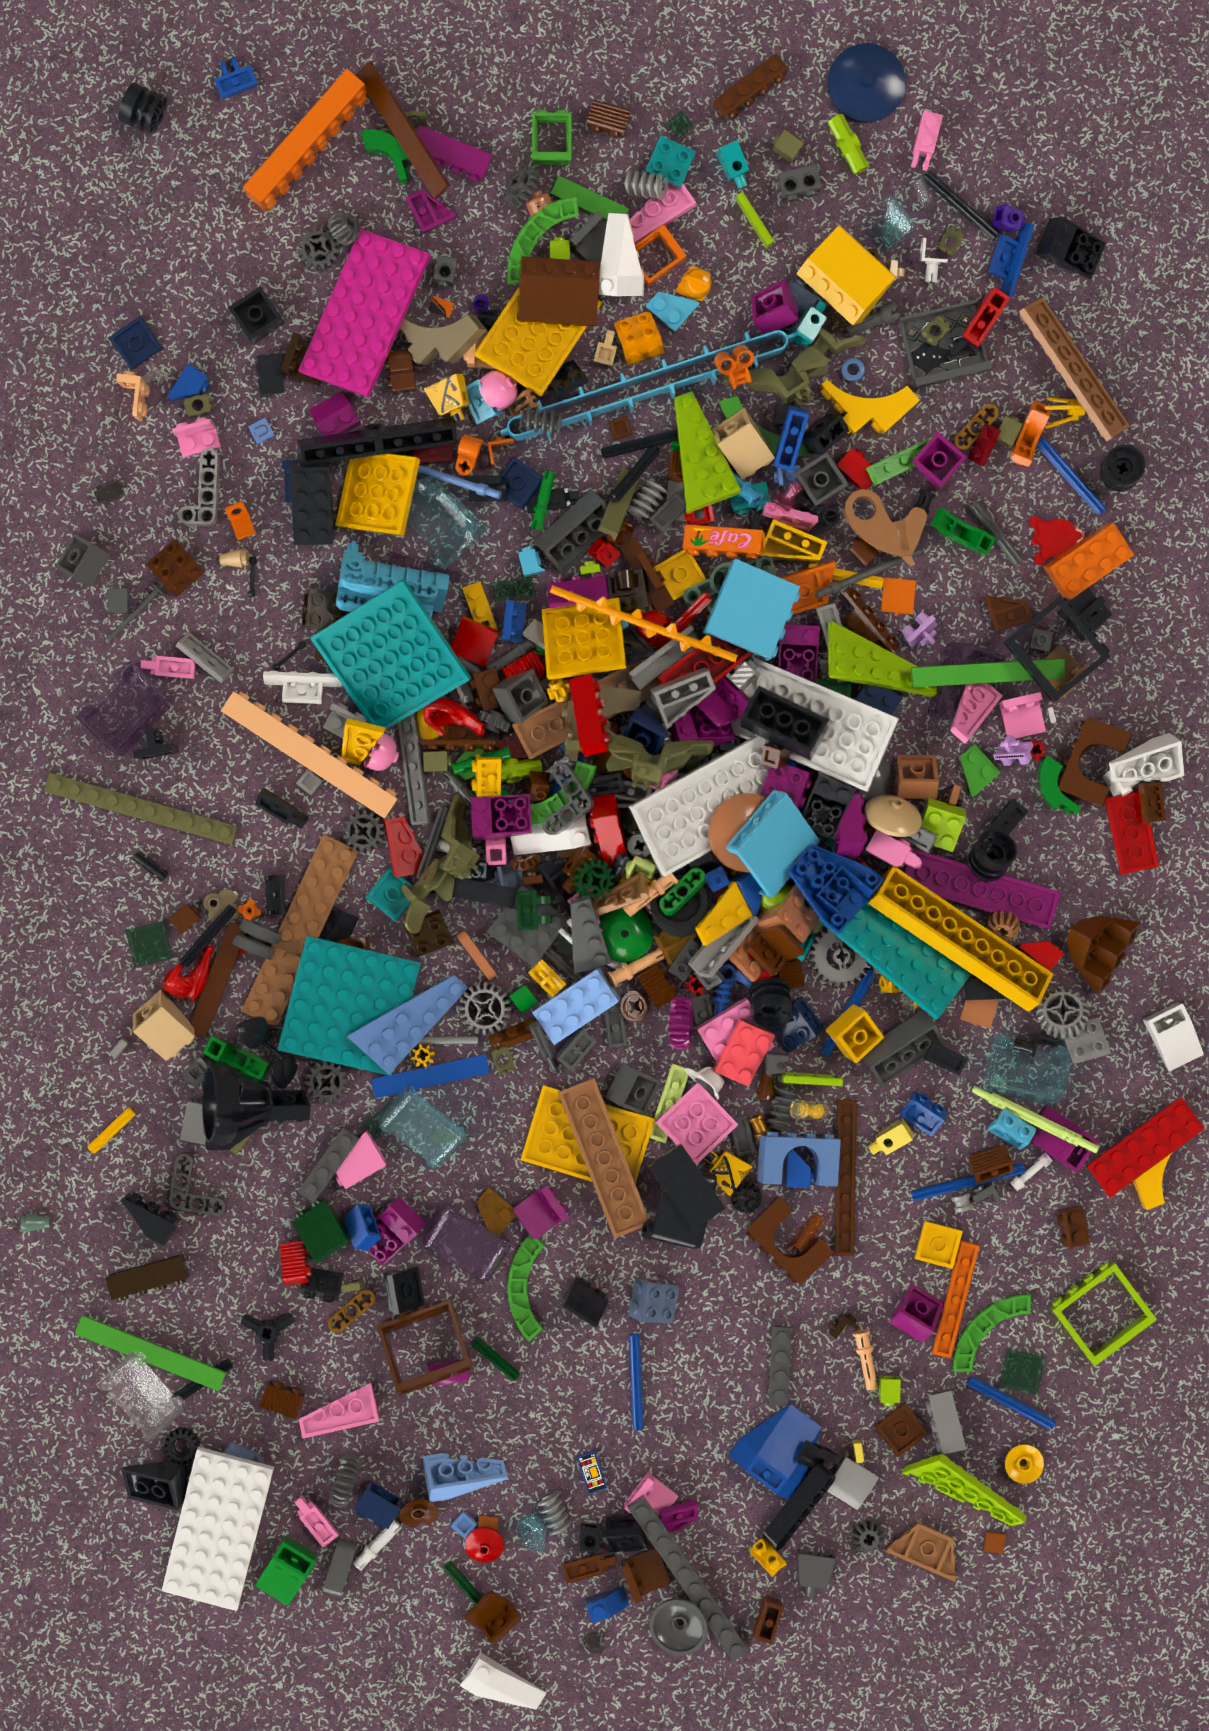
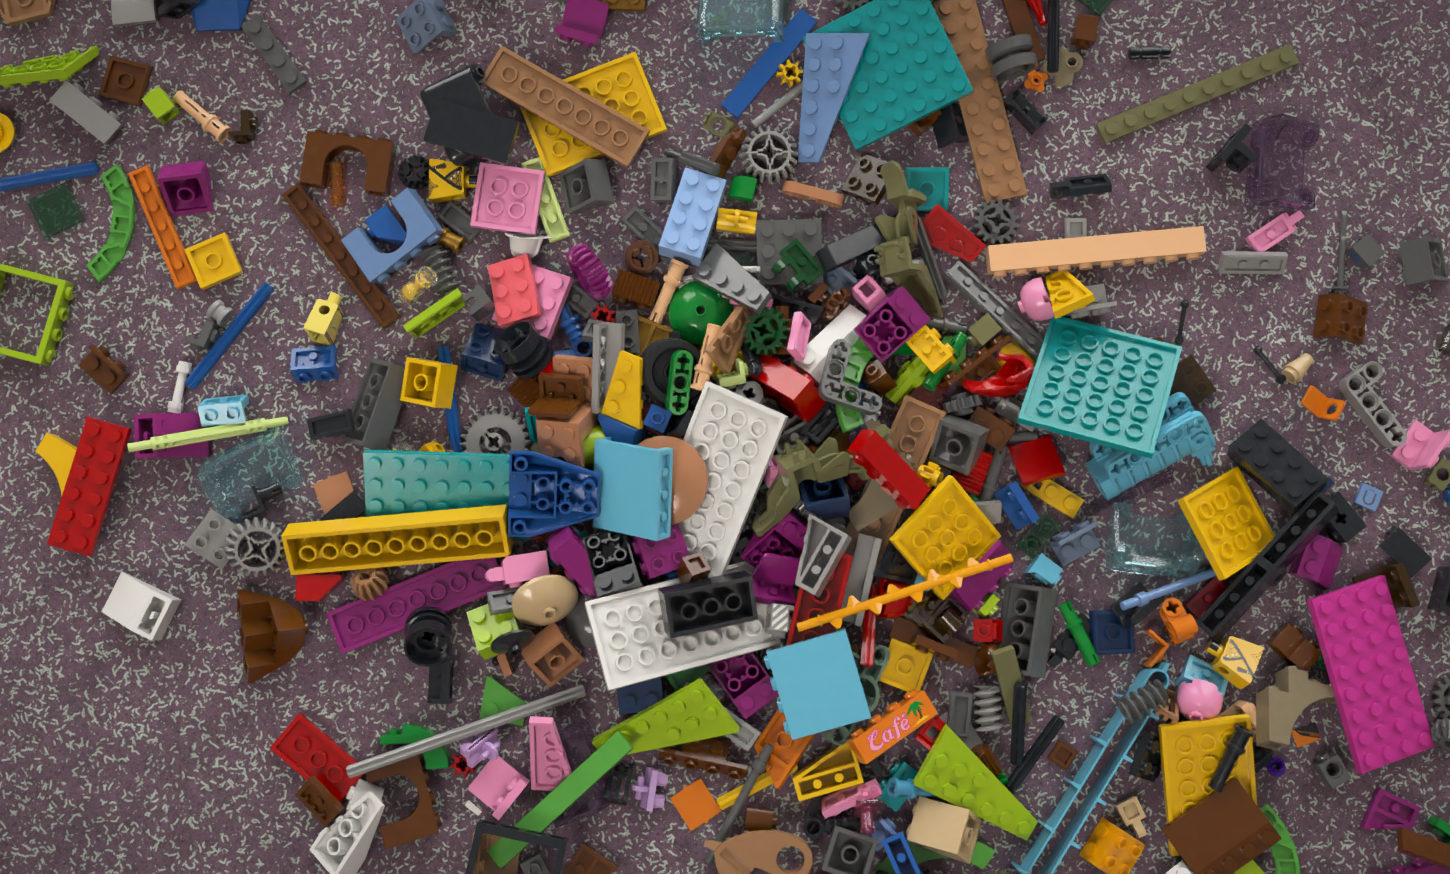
camera: 140 degrees right, 5 degrees down
(291, 423) = (1348, 523): none -> black brick
(301, 686) = (1150, 303): white bracket -> none
(493, 563) = (1074, 544): none -> sand blue bracket
(503, 340) = (1234, 749): none -> black pin
(573, 858) = (799, 336): none -> bright pink tile
(766, 1088) = (470, 276): reddish brown cone -> none
(858, 1451) = (146, 31): light yellow tile -> none
(929, 661) = (621, 768): none -> black tile
(937, 804) = (512, 642): none -> black dish
(990, 1163) = (220, 365): reddish brown brick -> none
(1015, 770) = (465, 731): none -> light grey axle

